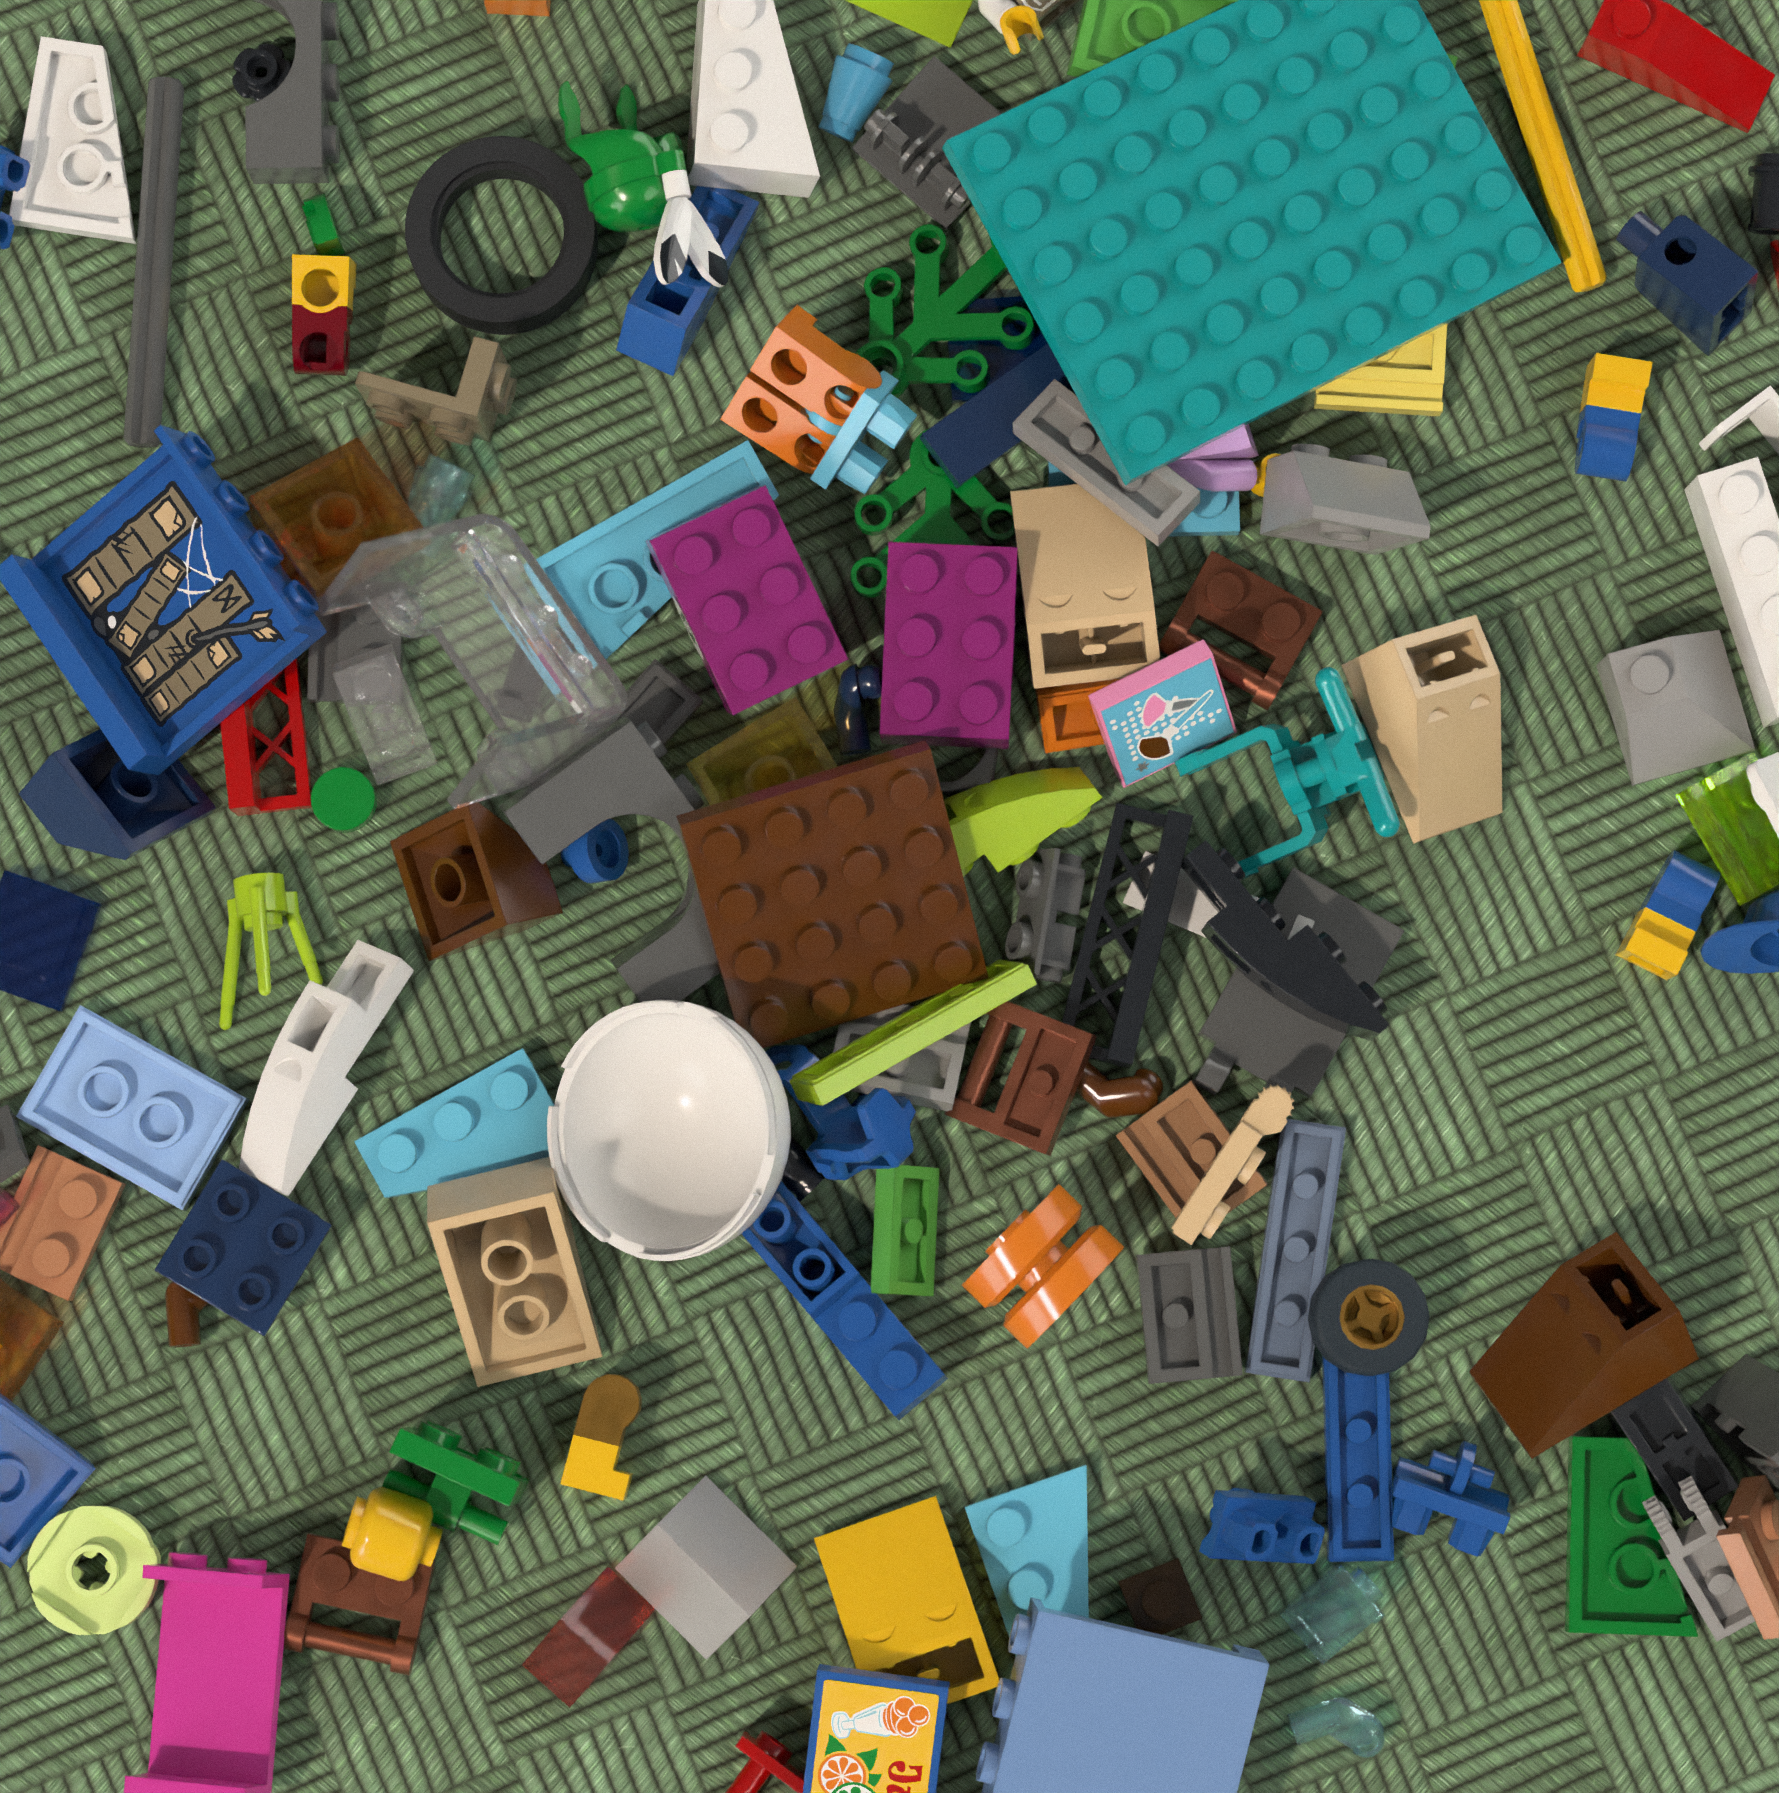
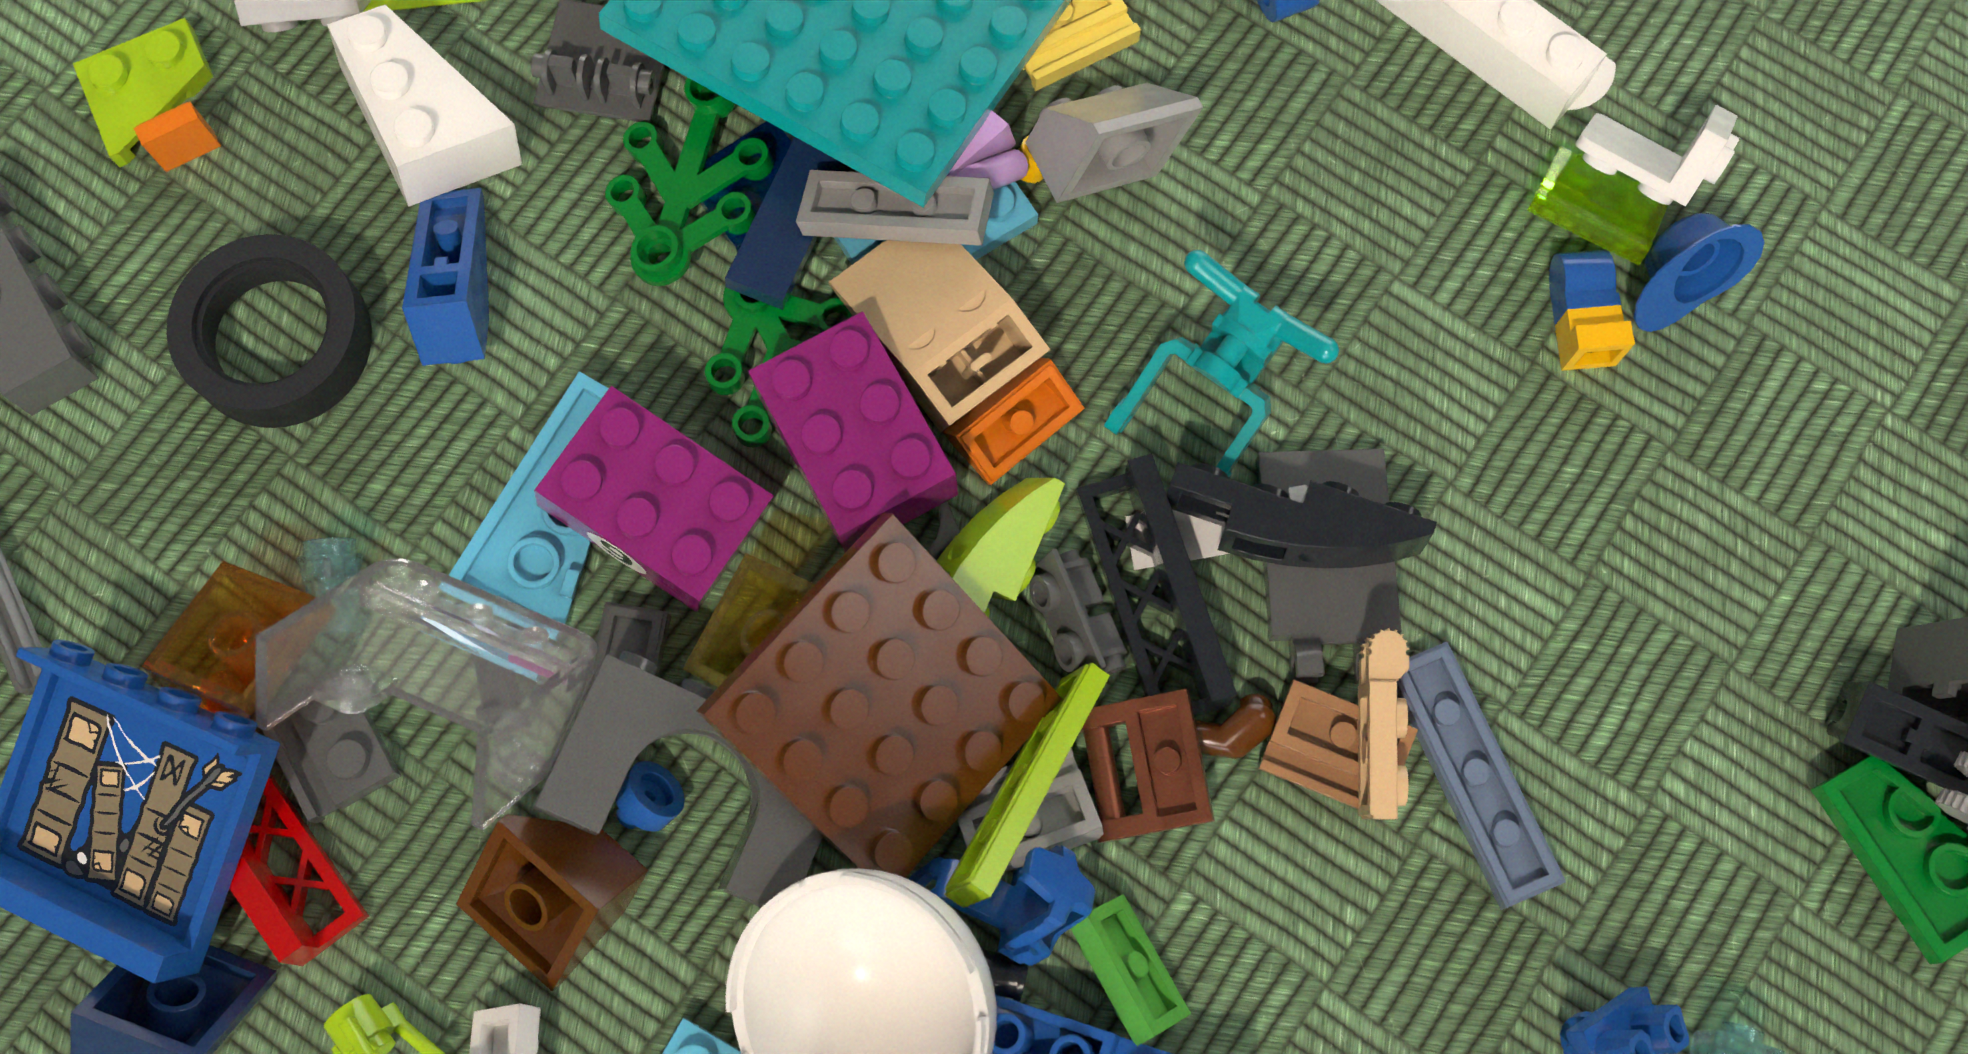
camera: 30 degrees left, 10 degrees down
(322, 226) = (108, 414): green tile -> none
(322, 313) = (141, 479): leg -> none
(343, 799) = (391, 891): green tile -> none
(384, 714) = (383, 790): clear plate -> none
(471, 414) = (305, 492): dark tan bracket -> none
(643, 186) = (366, 217): green hair -> none
(817, 403) = (621, 305): orange hips -> none
(850, 709) = (798, 540): dark blue arm -> none
(854, 91) = (508, 51): dark azure cone -> none
(1042, 1265) = (1287, 925): orange wheel -> none
(1163, 713) = (1070, 385): tile -> none
(1189, 1315) = (1425, 888): dark grey plate -> none
(1250, 613) = (1088, 275): copper plate -> none
(1357, 1466) = (1635, 901): blue tile -> none
(1390, 1313) = (1603, 772): black wheel -> none
(1435, 724) = (1299, 256): tan slope -> none
(1452, 1488) = (1755, 896): blue hips -> none
(1583, 1347) = (1783, 700): reddish brown slope -> none
(1674, 705) = (1470, 150): light grey slope -> none

